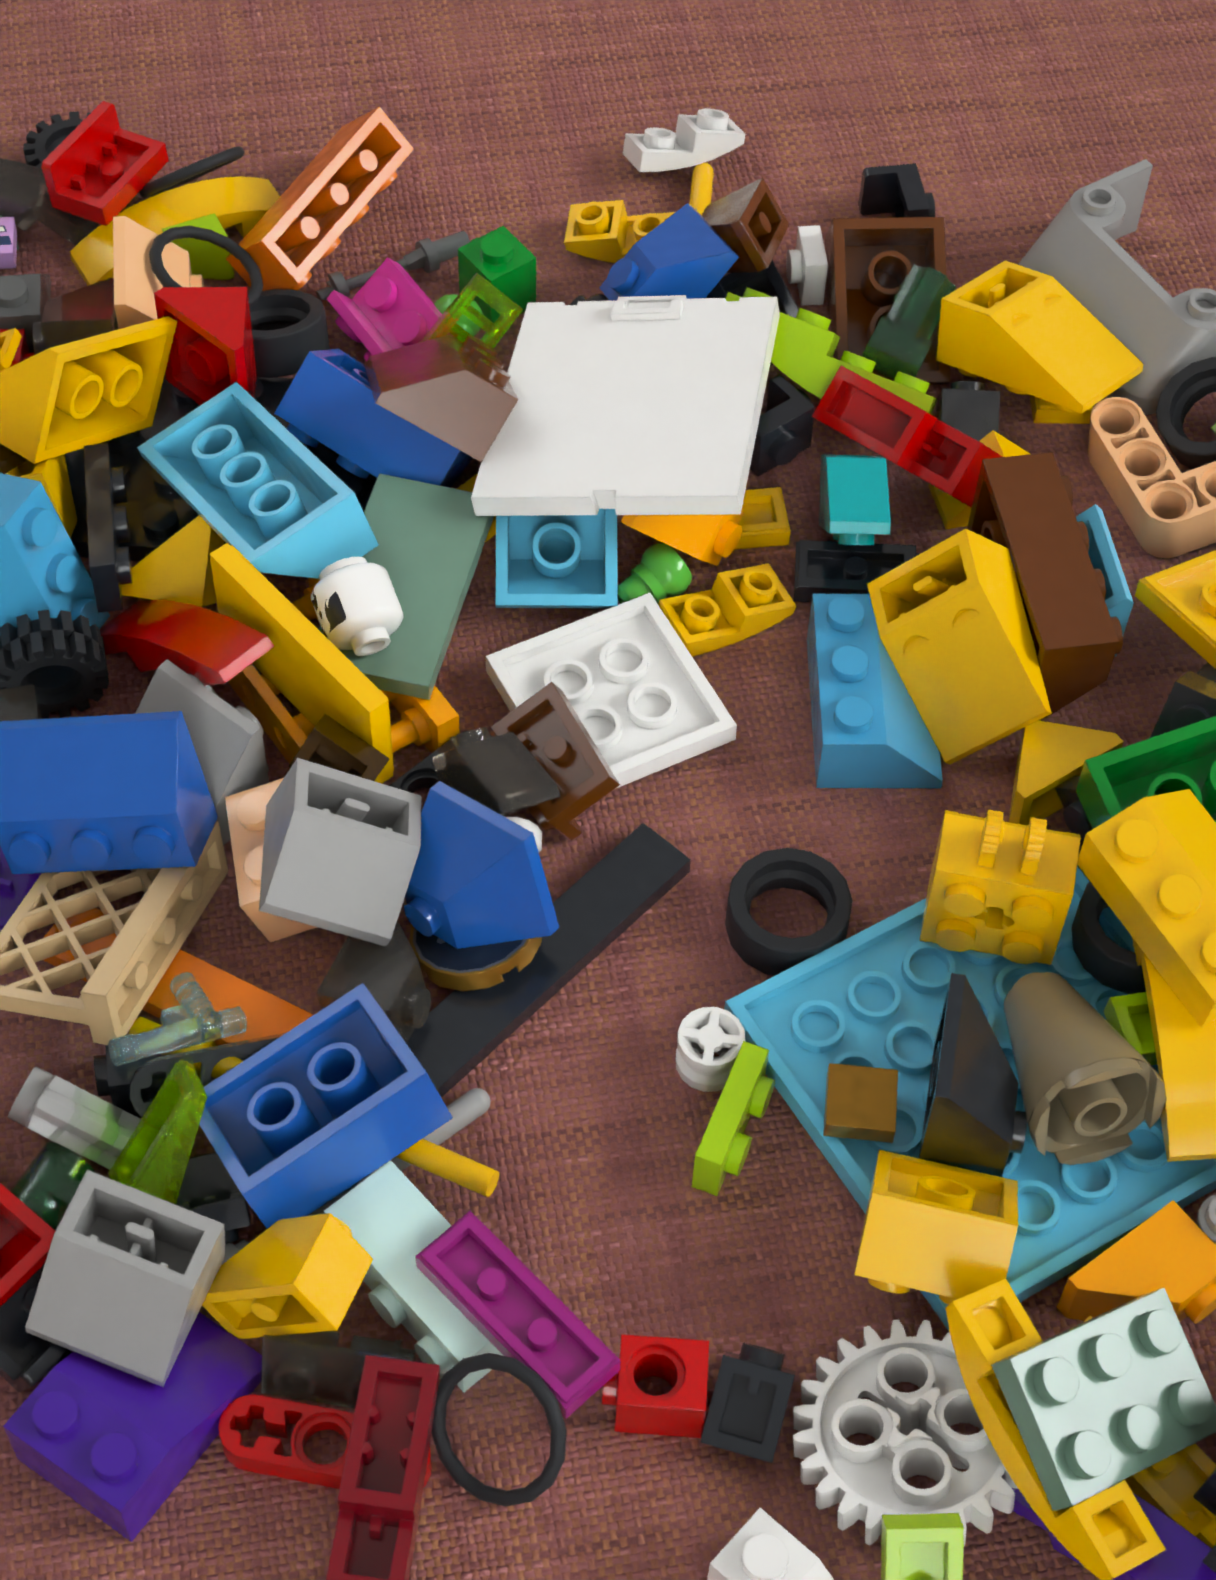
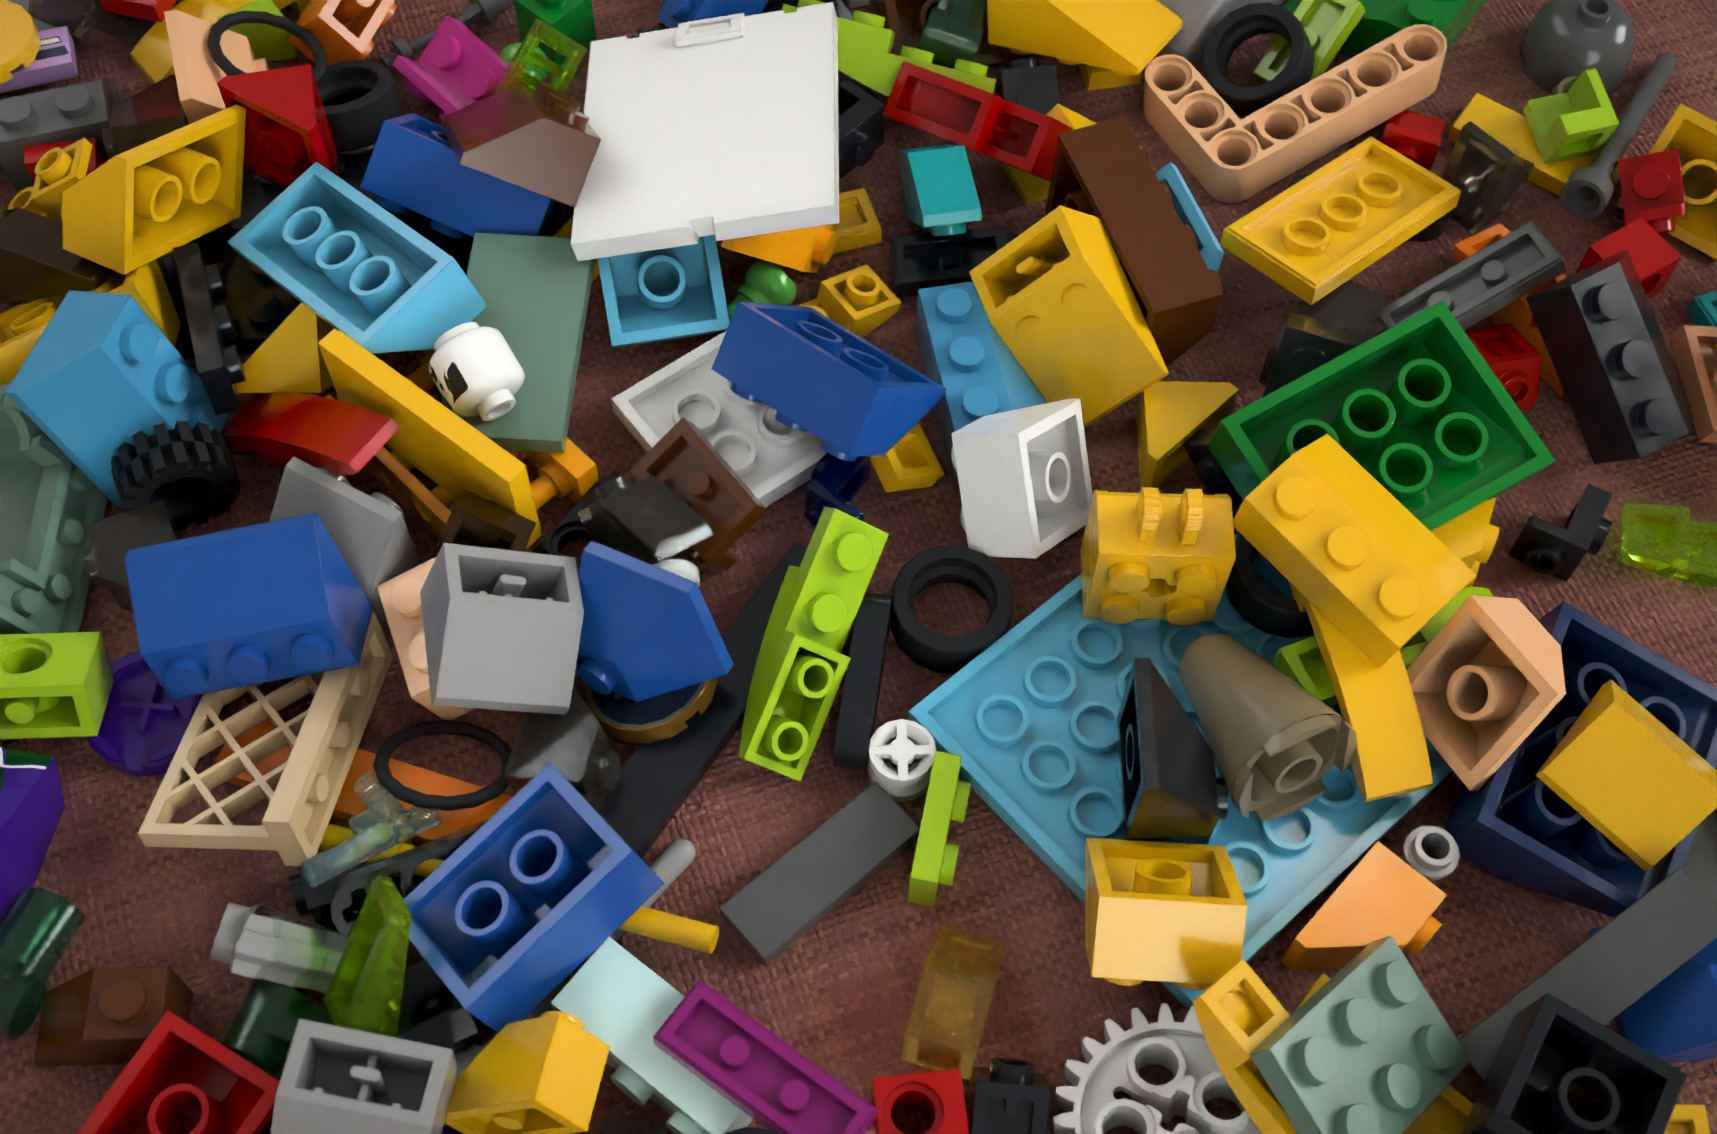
camera: 10 degrees left, 5 degrees up
(247, 1008) = (438, 802): none -> black piece
(608, 1143) = (819, 873): none -> dark grey tile
(634, 917) = (803, 644): none -> lime slope
(686, 966) = (863, 682): none -> black beam
(691, 777) = (834, 486): none -> clear blue bracket
(699, 666) = (823, 378): none -> blue slope
(716, 1283) = (953, 1001): none -> clear yellow slope
(767, 757) = (908, 463): none -> yellow plate
(861, 1102) = (1060, 793): pearl gold tile -> none
(883, 793) = (1023, 479): none -> white slope

